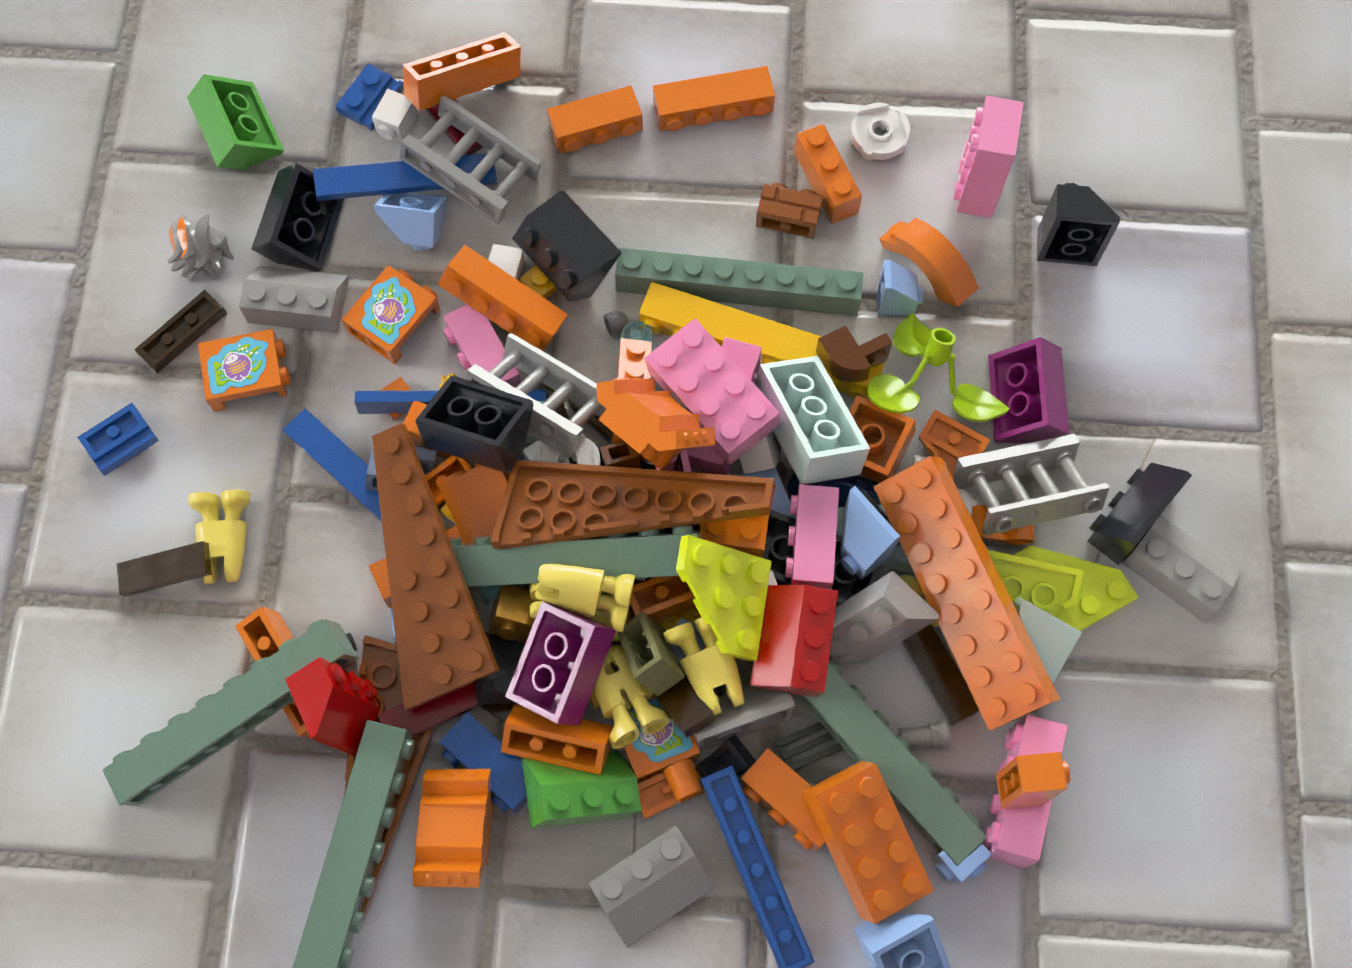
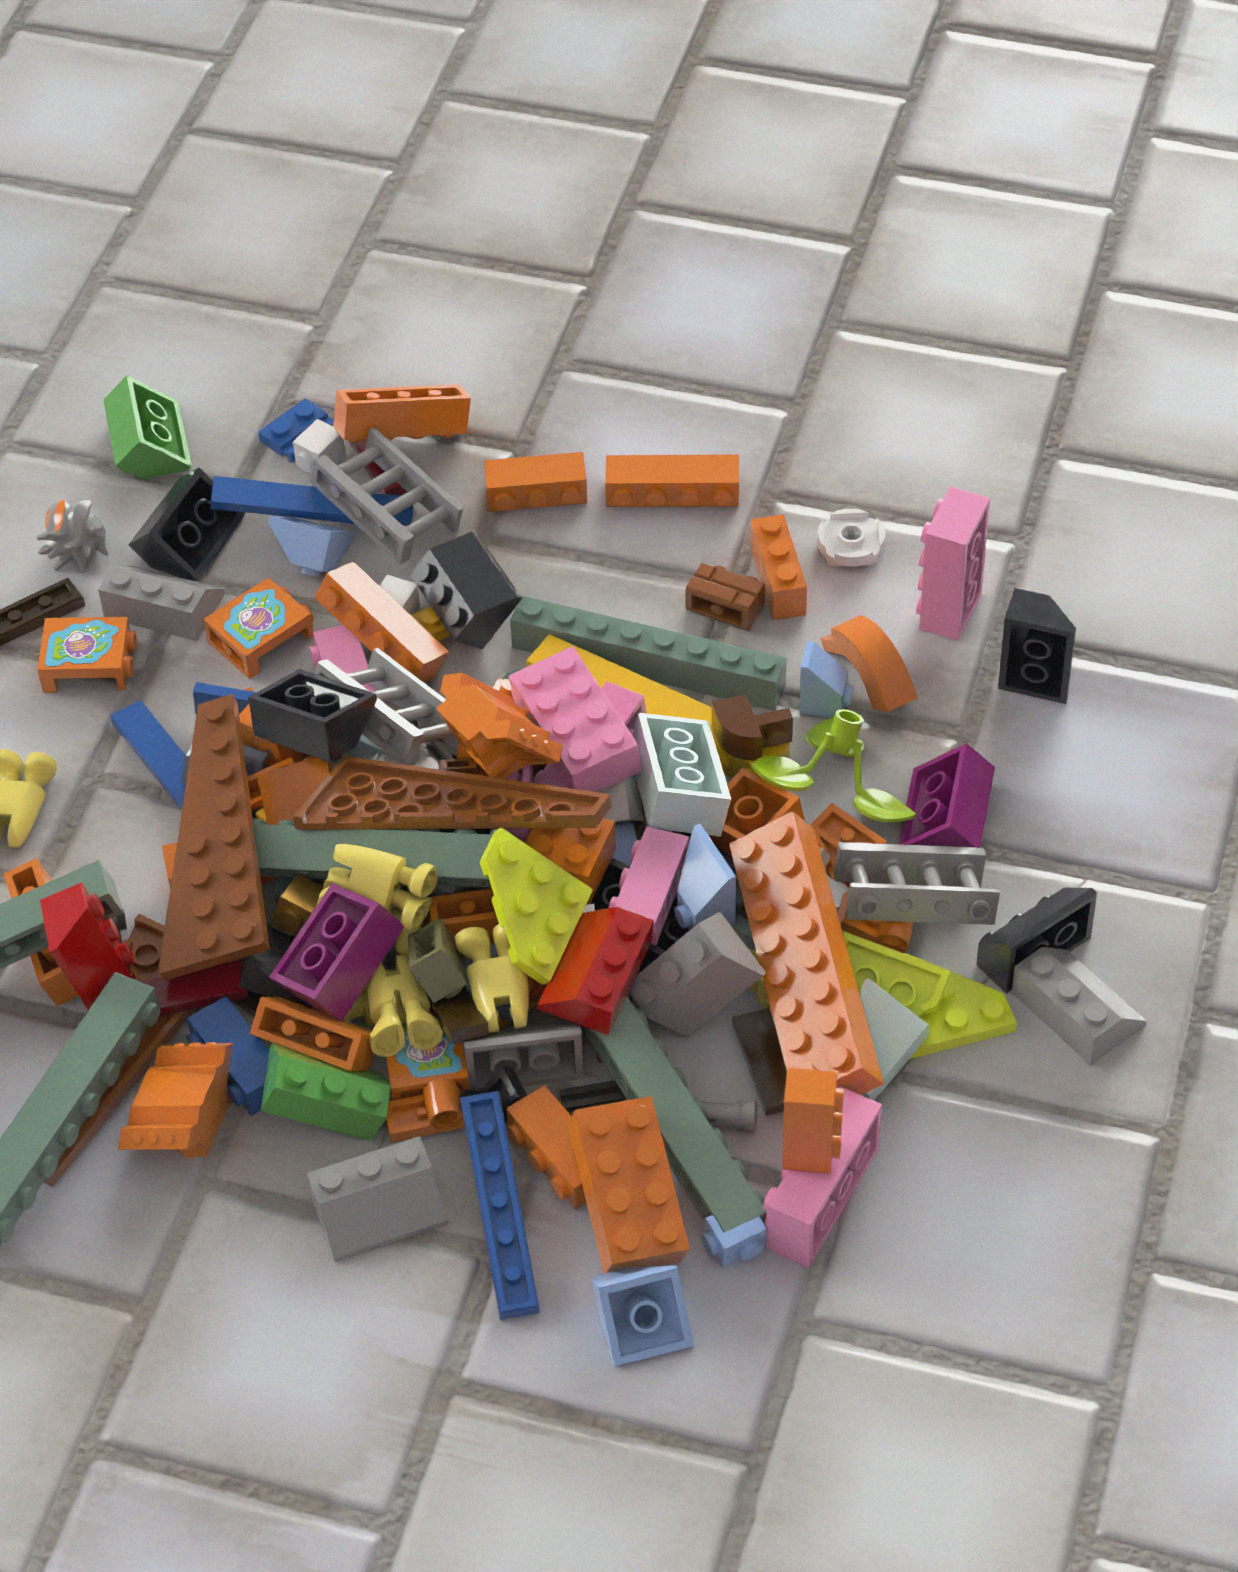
camera: 15 degrees right, 20 degrees down
(615, 322) = (499, 669): dark grey hinge -> none

